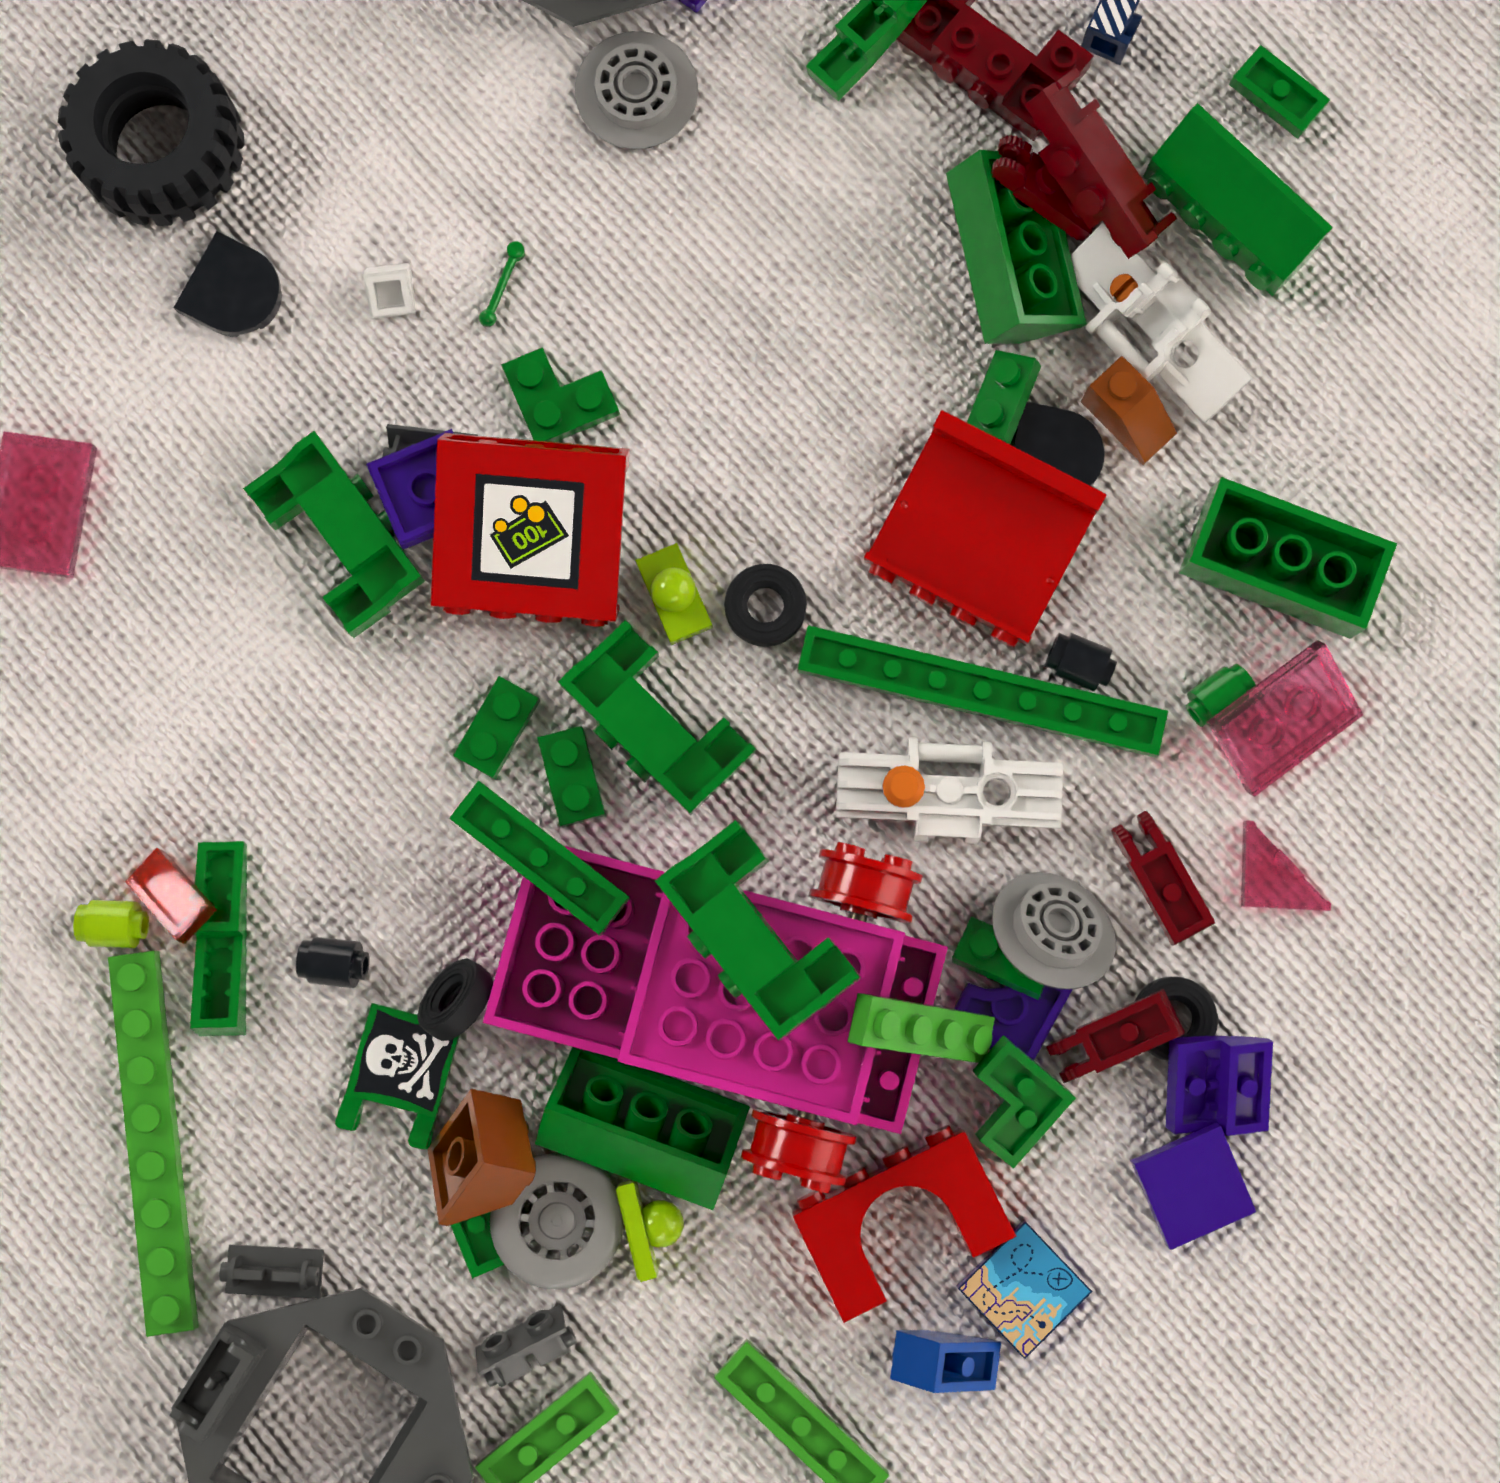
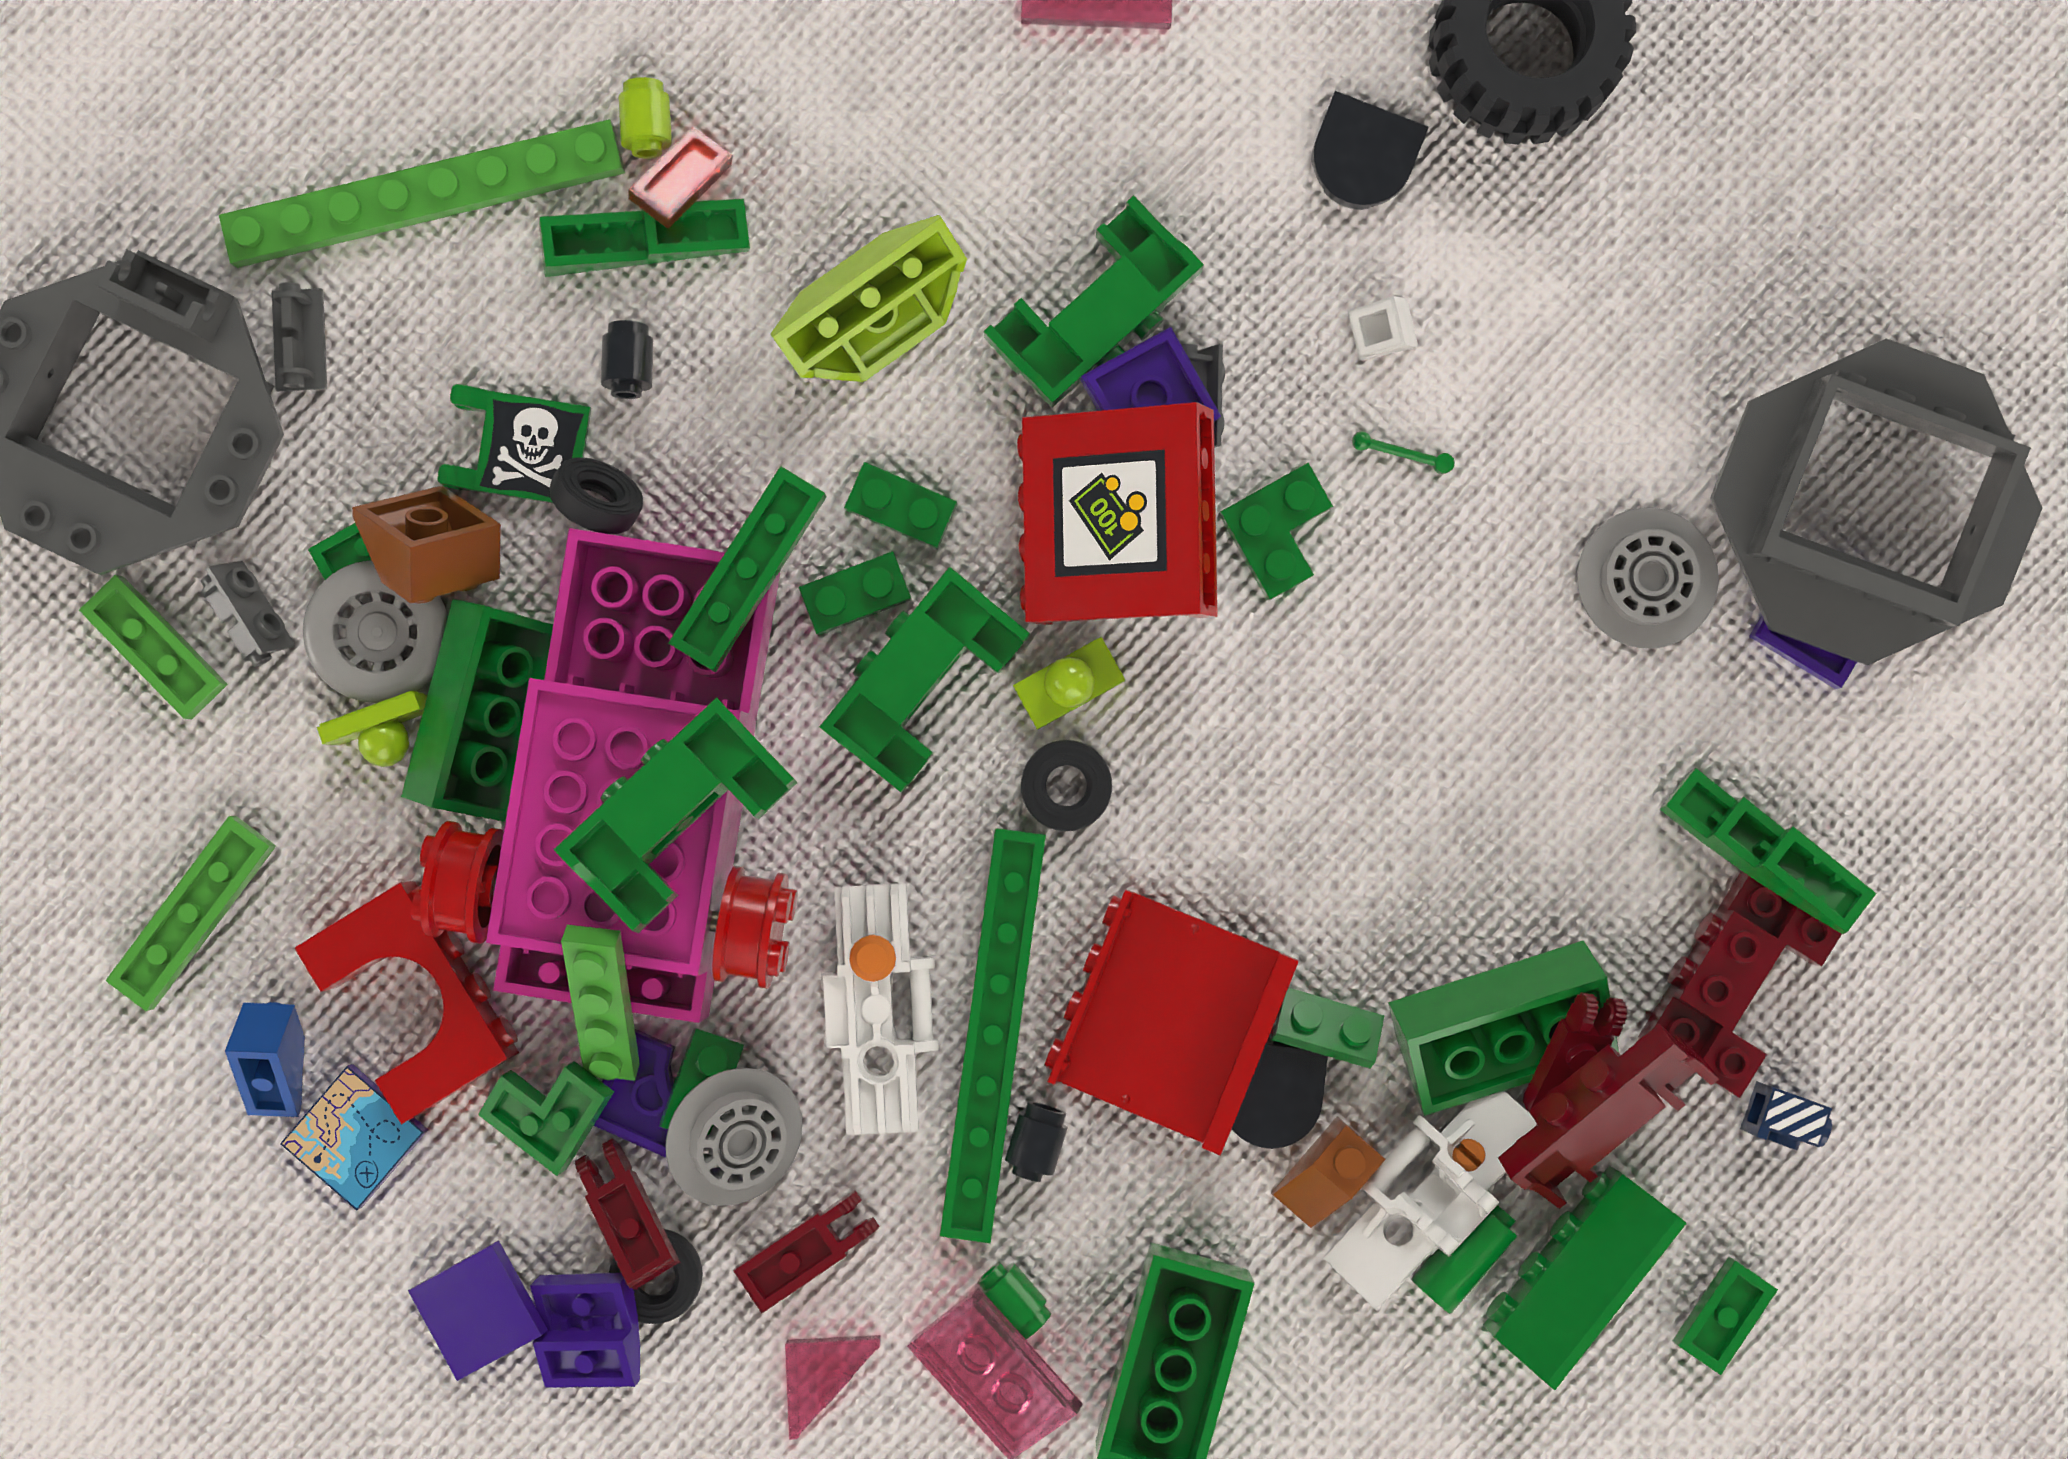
camera: 85 degrees right, 5 degrees up
(309, 728) = (873, 304): none -> lime wedge
(1230, 315) = (1453, 1277): none -> green brick

